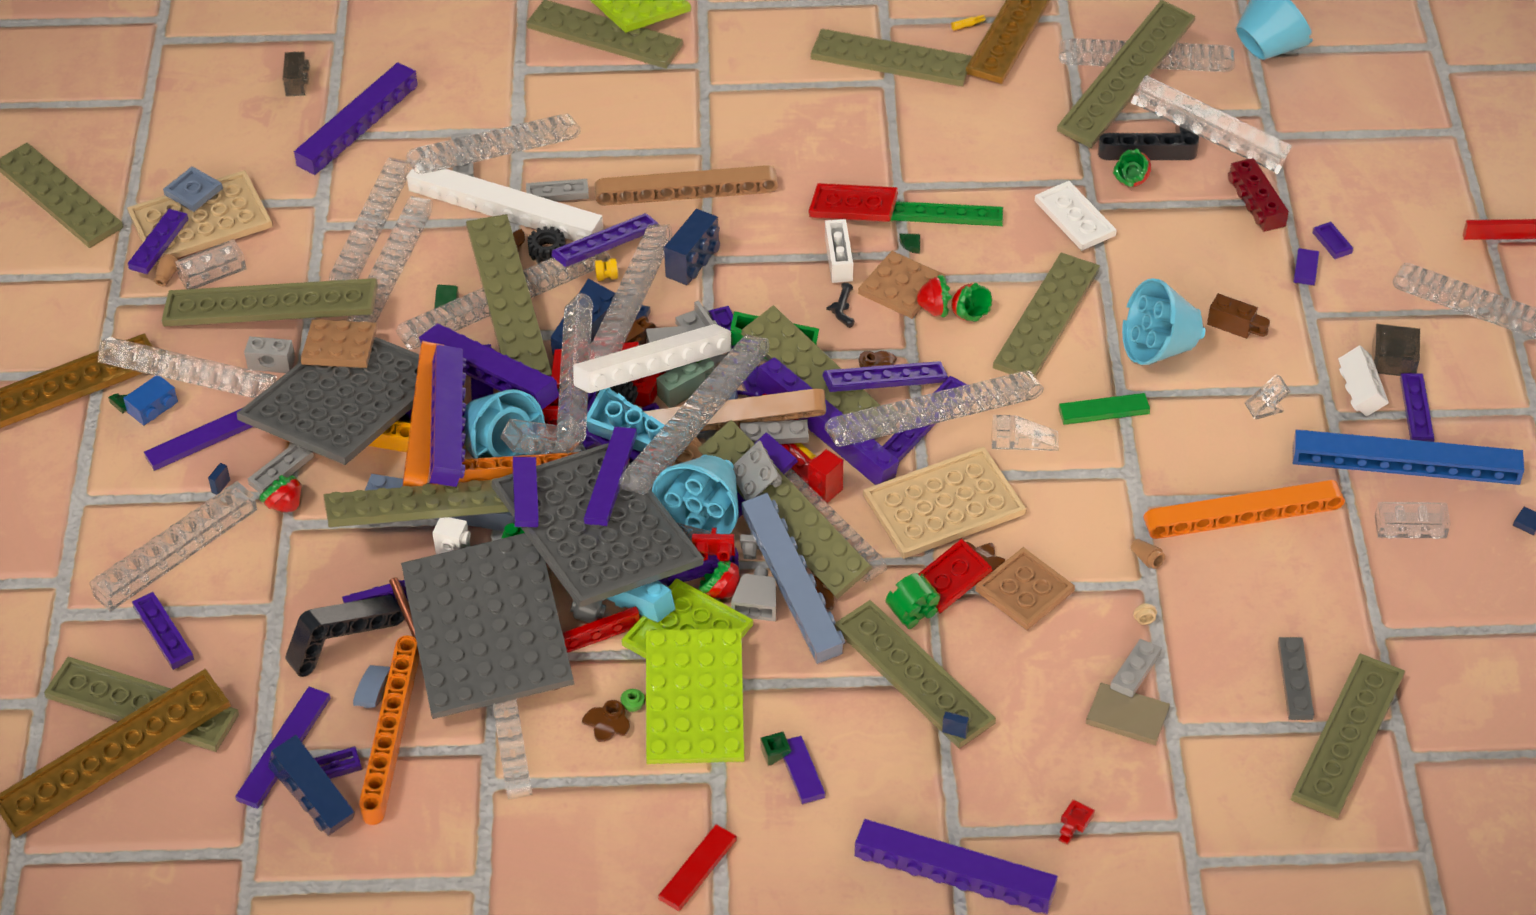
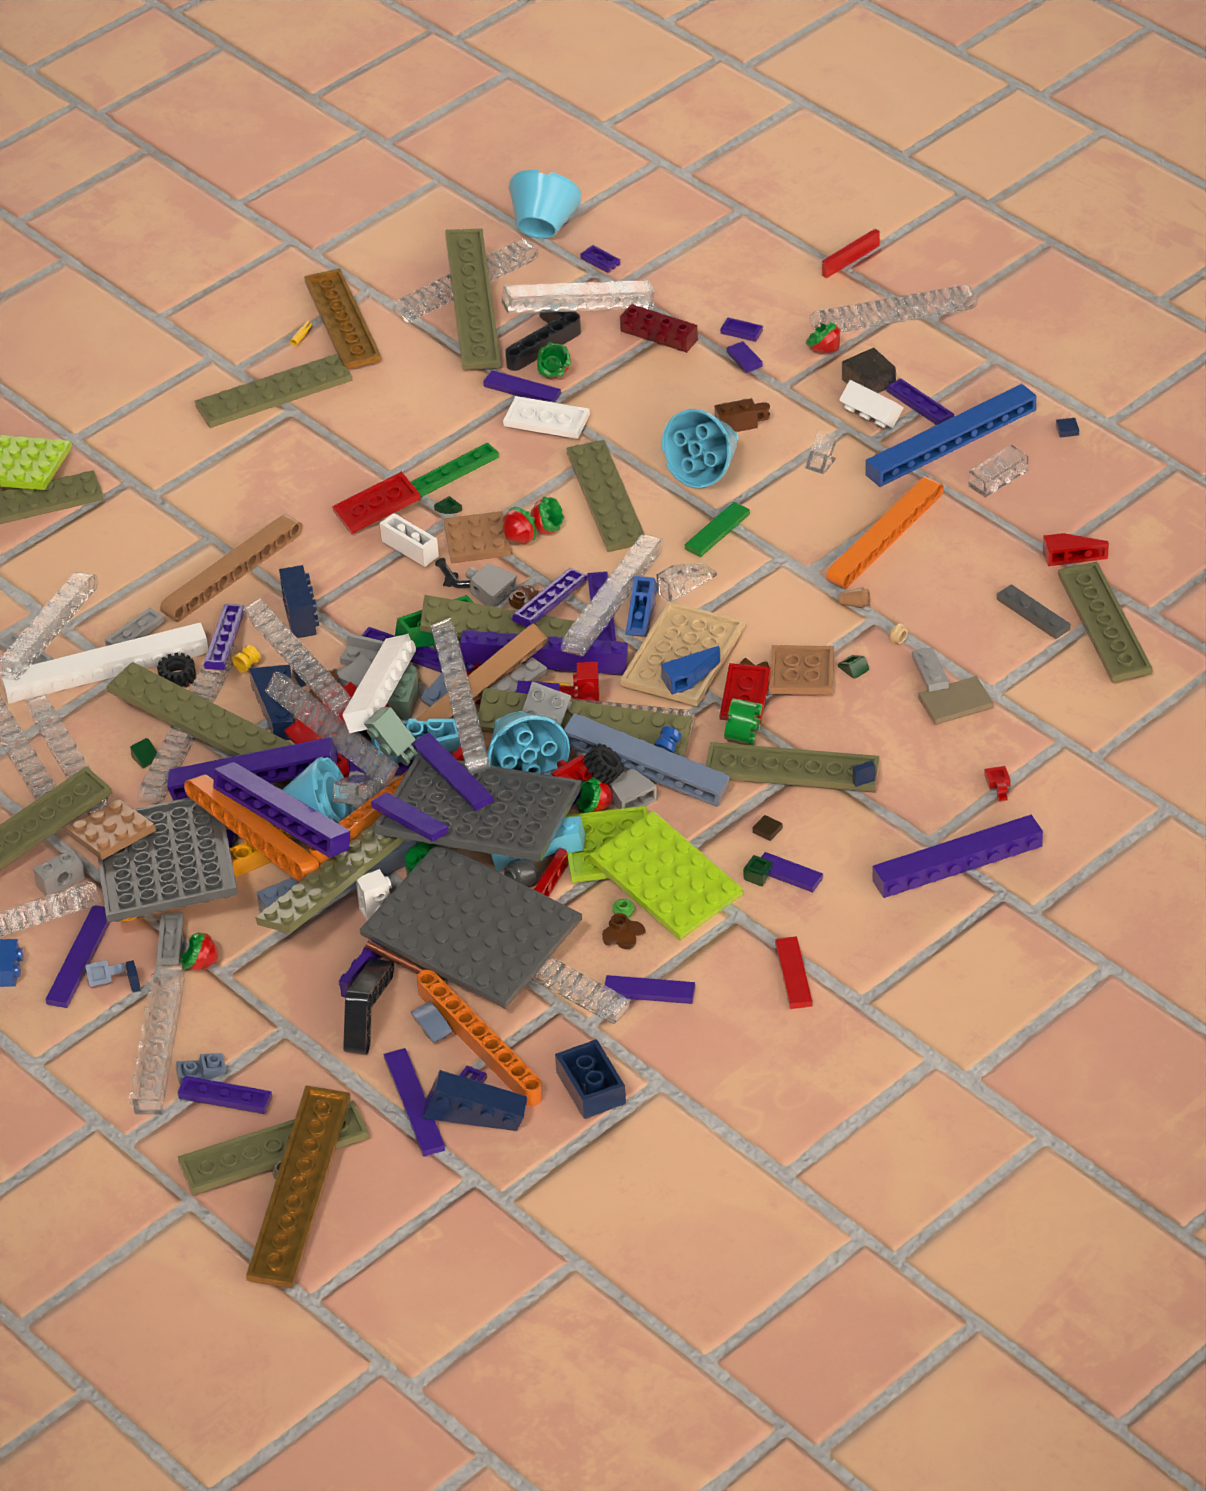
camera: 40 degrees left, 5 degrees down
(176, 595) = (205, 1068): none -> sand blue slope
(202, 458) = (100, 973): none -> sand blue plate
(420, 835) = (590, 1078): none -> dark blue brick
(568, 790) = (652, 989): none -> dark purple tile
(597, 409) = (391, 734): none -> brick
(732, 556) = (603, 763): none -> black tyre
(819, 572) = (668, 738): none -> blue wheel
(831, 714) = (767, 827): none -> dark brown tile
(859, 333) = (491, 584): none -> light grey torso
(921, 521) = (689, 670): none -> blue slope
(957, 435) = (641, 606): none -> blue slope
(1077, 617) = (854, 666): none -> dark green slope
(1087, 177) = (521, 387): none -> dark purple tile
(1284, 113) = (601, 260): none -> dark purple tile
(1391, 295) = (825, 338): none -> hair
(1395, 641) = (1069, 549): none -> red slope

